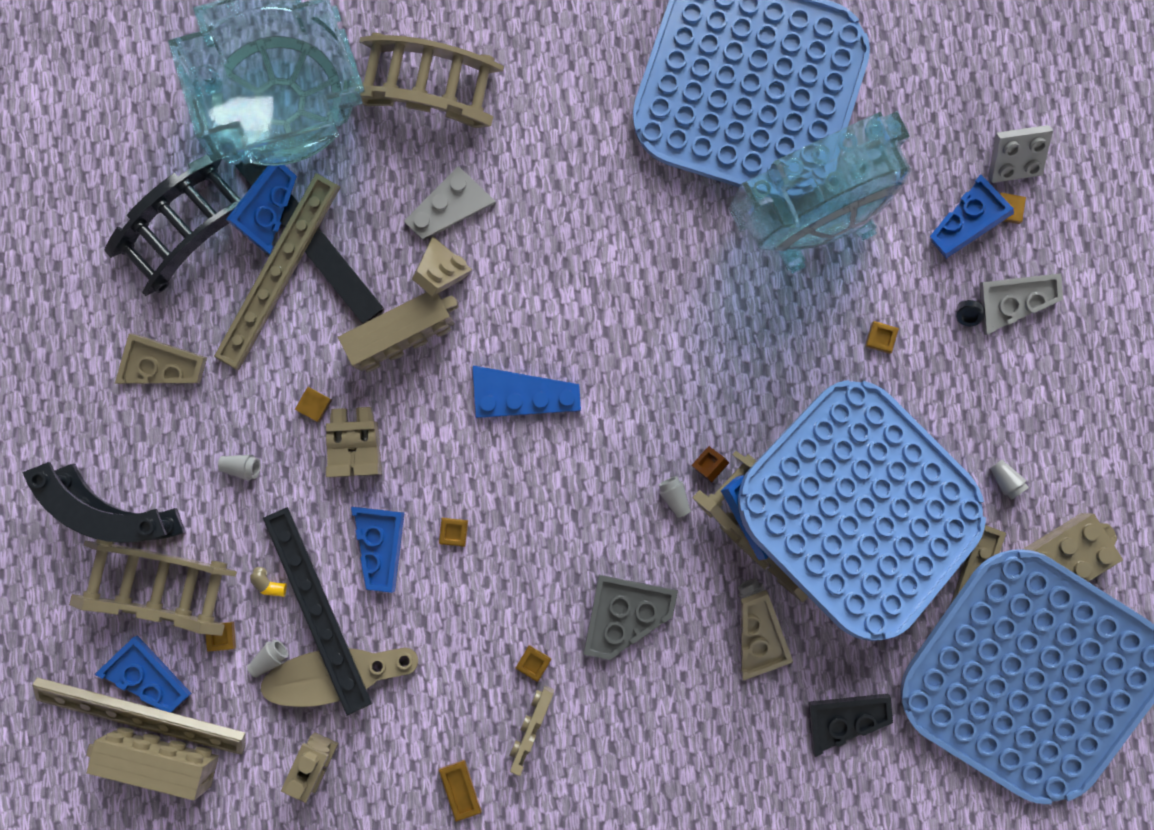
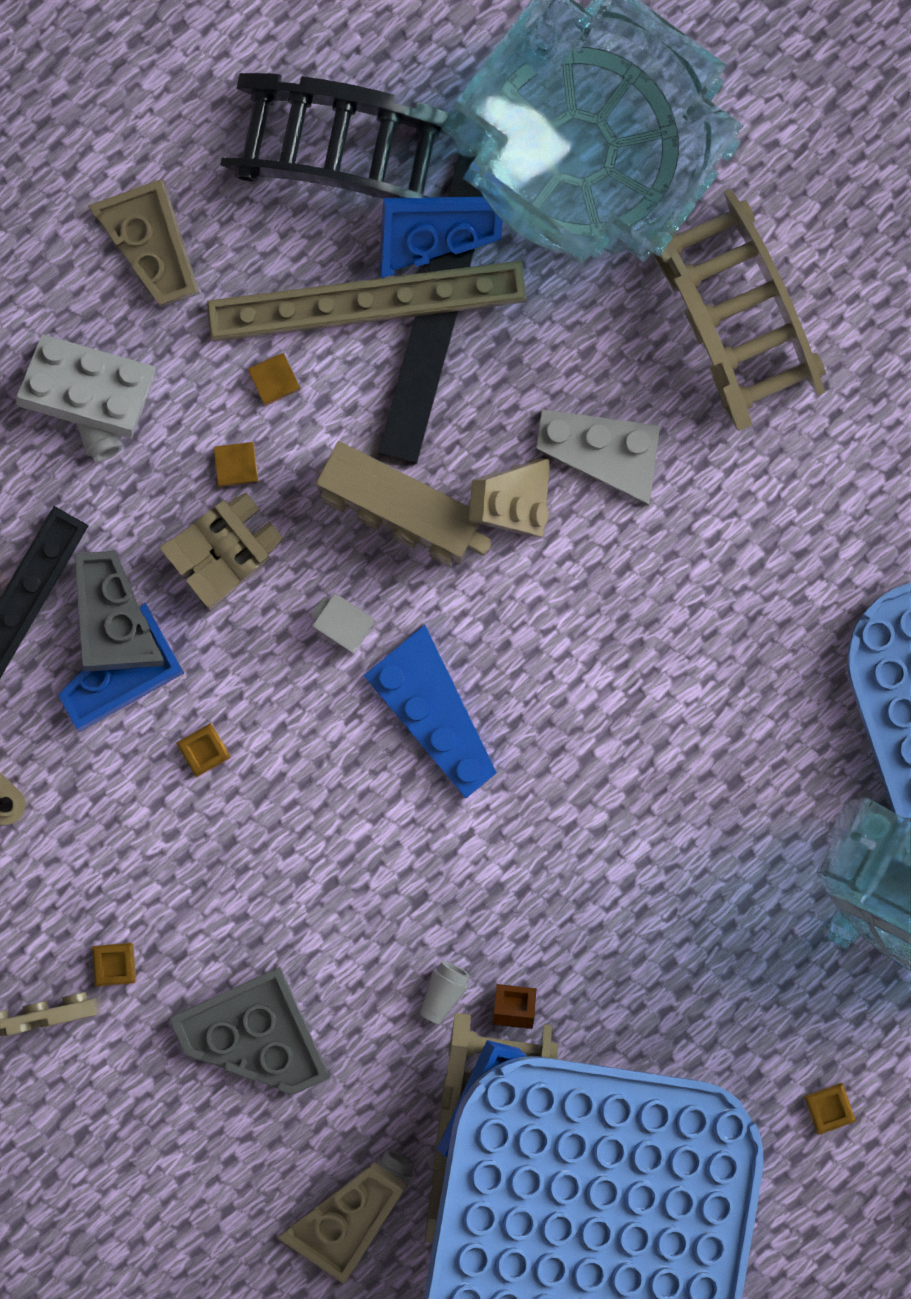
camera: 55 degrees right, 0 degrees up
(210, 454) = (86, 386): none -> light grey plate
(283, 351) = (274, 379): none -> pearl gold tile
(345, 531) = (110, 620): none -> dark grey wing
(439, 408) = (342, 622): none -> light grey brick

